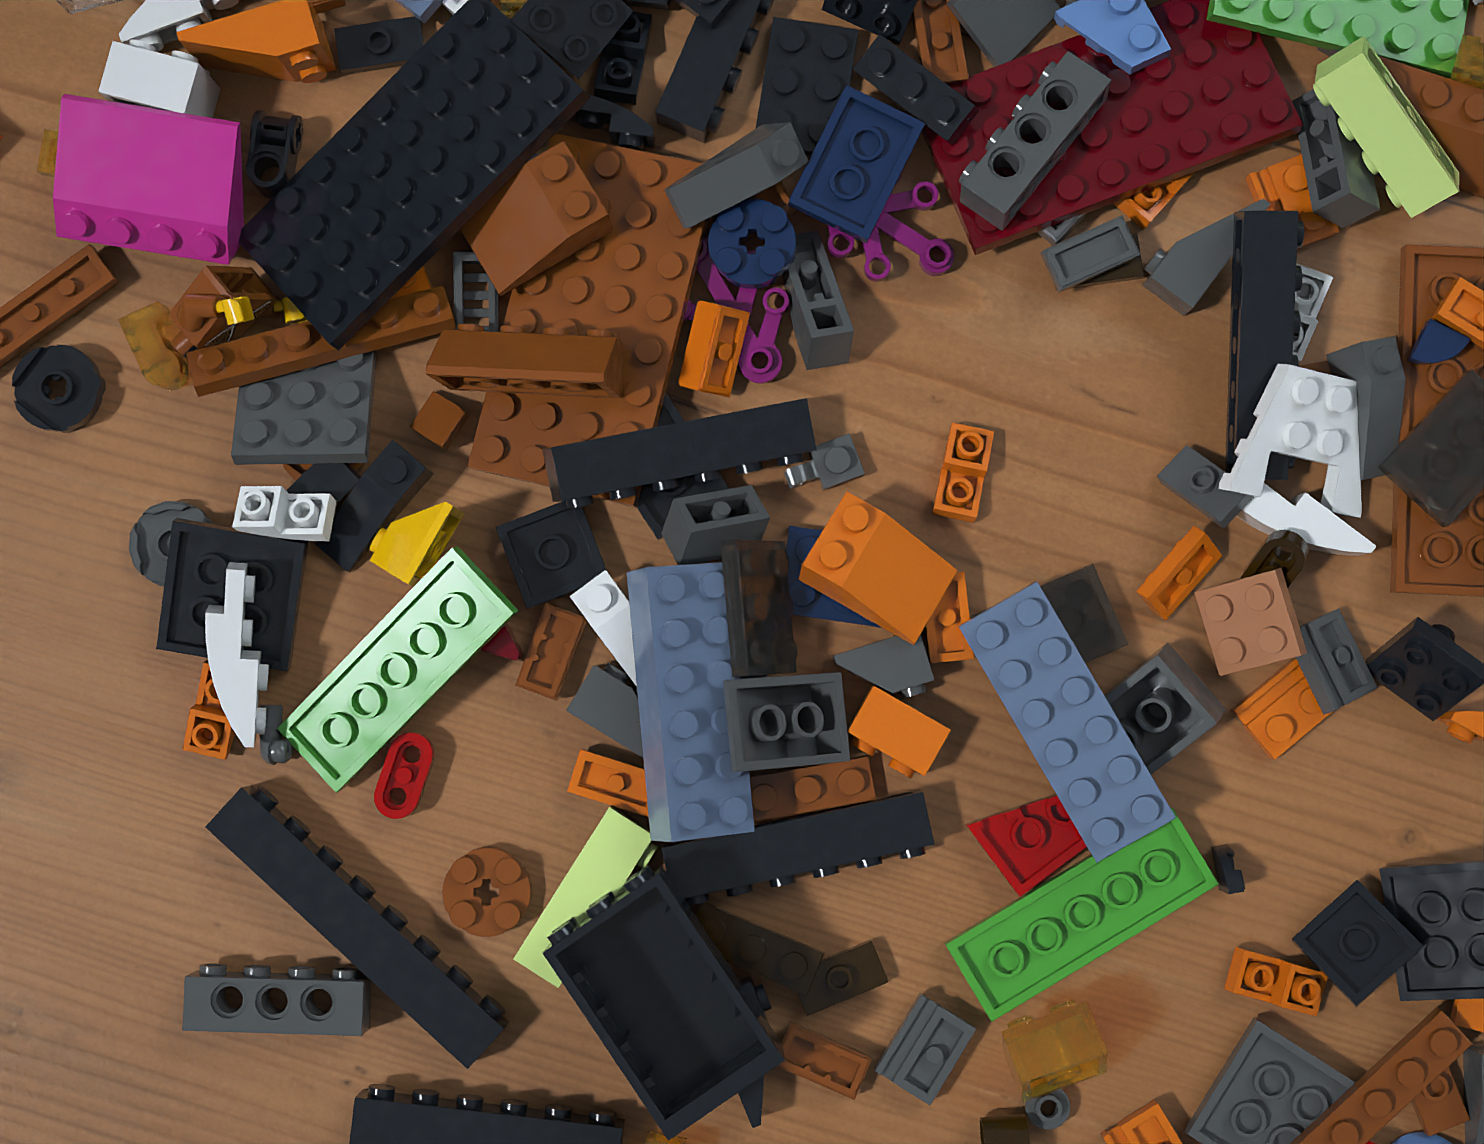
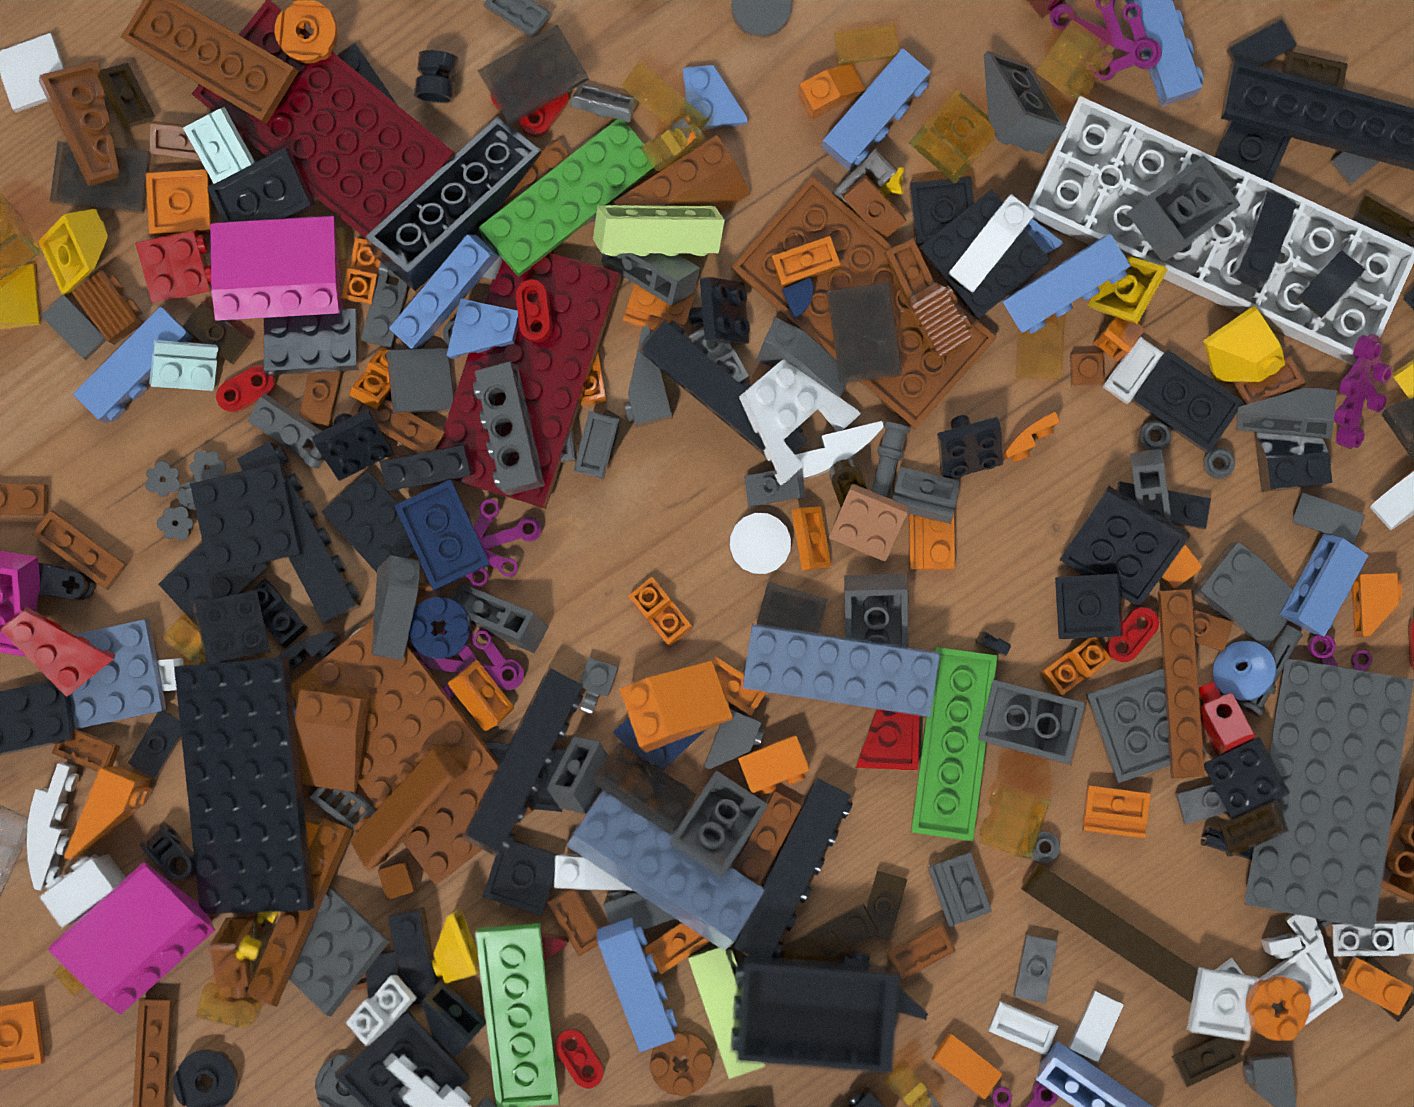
camera: 50 degrees left, 0 degrees up
(336, 598) = (451, 1018): none -> black slope
(535, 771) = (636, 984): none -> medium blue brick
(1126, 522) = (760, 543): none -> white tile
(1178, 983) = (1032, 722): none -> dark grey slope
(1184, 68) = (534, 312): none -> red plate
(1342, 586) = (890, 453): none -> dark grey pin
(1352, 273) = (722, 311): none -> black plate
(1361, 1022) = (1132, 635): none -> red plate

